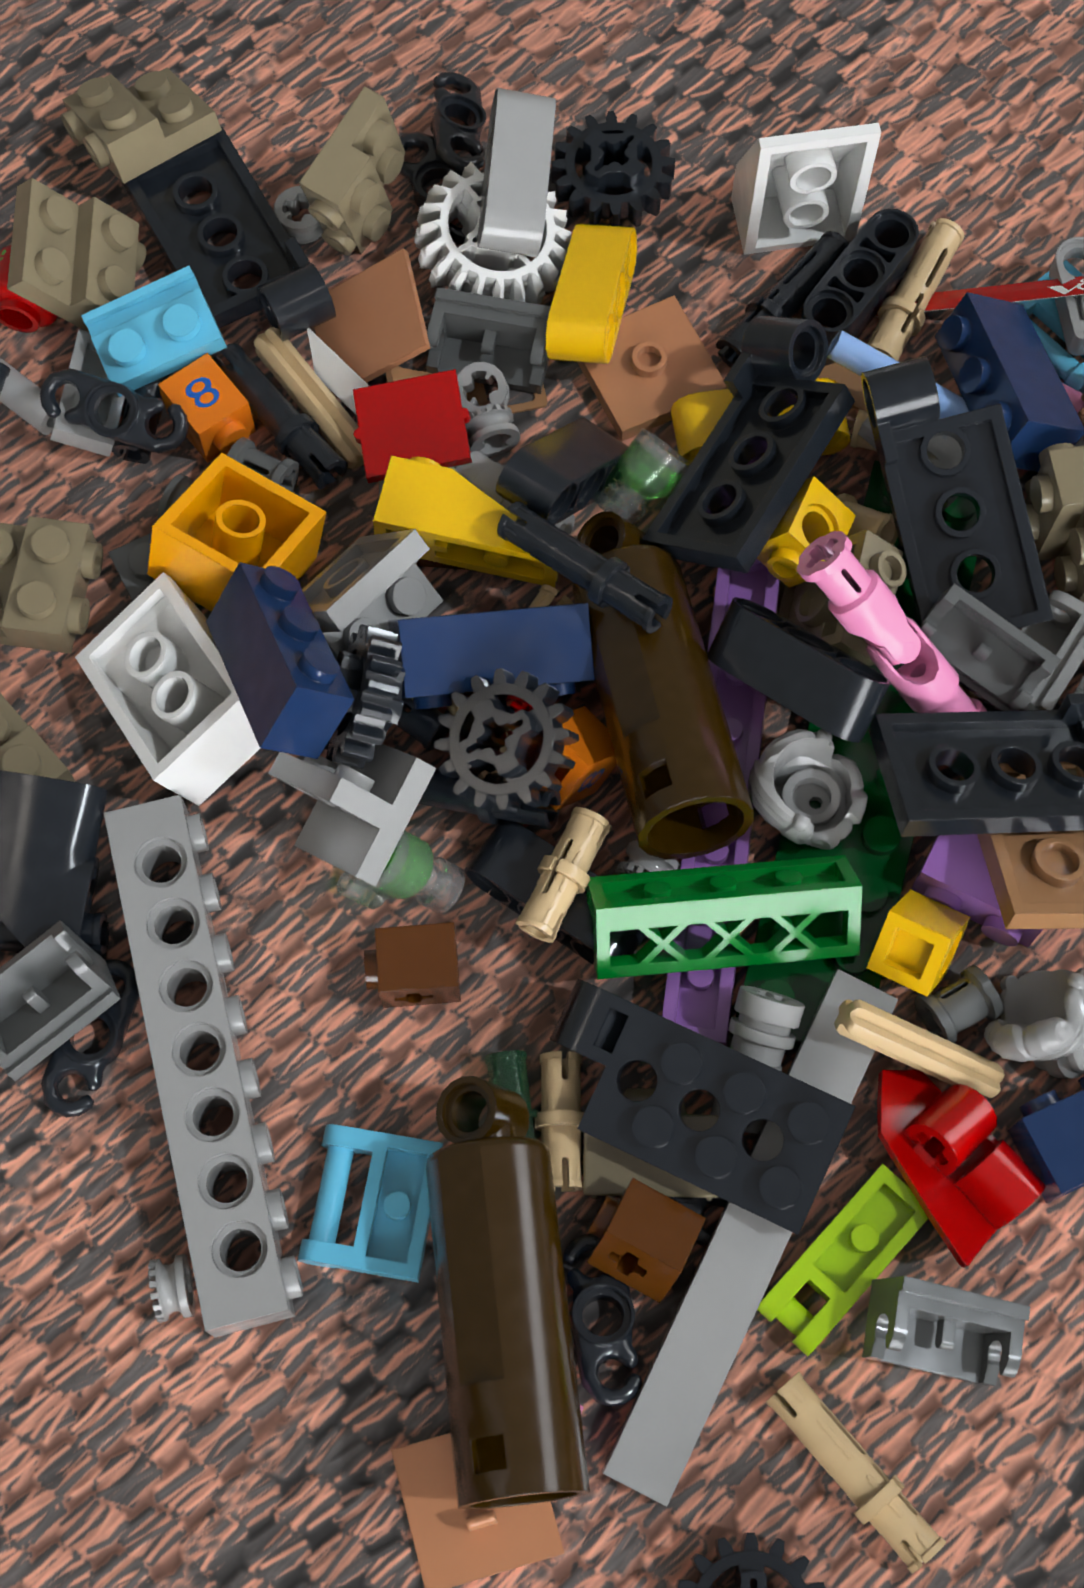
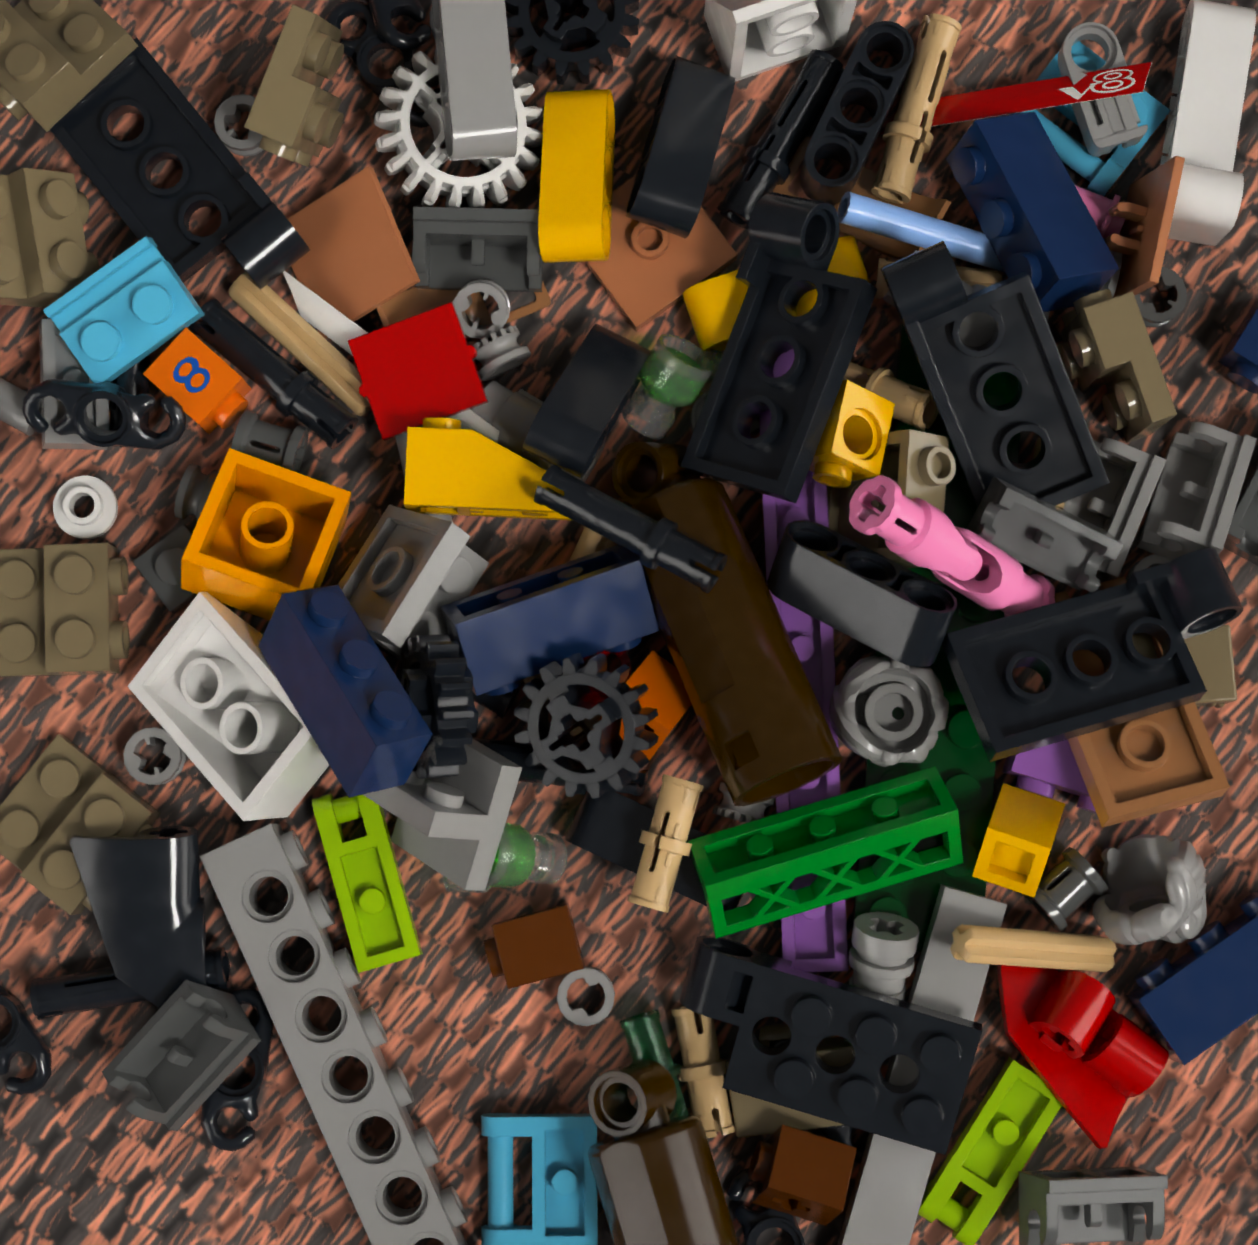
camera: 10 degrees left, 15 degrees up
(84, 709) = (136, 763): none -> light grey bush
(87, 510) = (99, 520): none -> white plate
(262, 878) = (367, 882): none -> lime plate
(444, 1043) = (579, 1014): none -> light grey bush
(690, 283) = (680, 147): none -> black beam

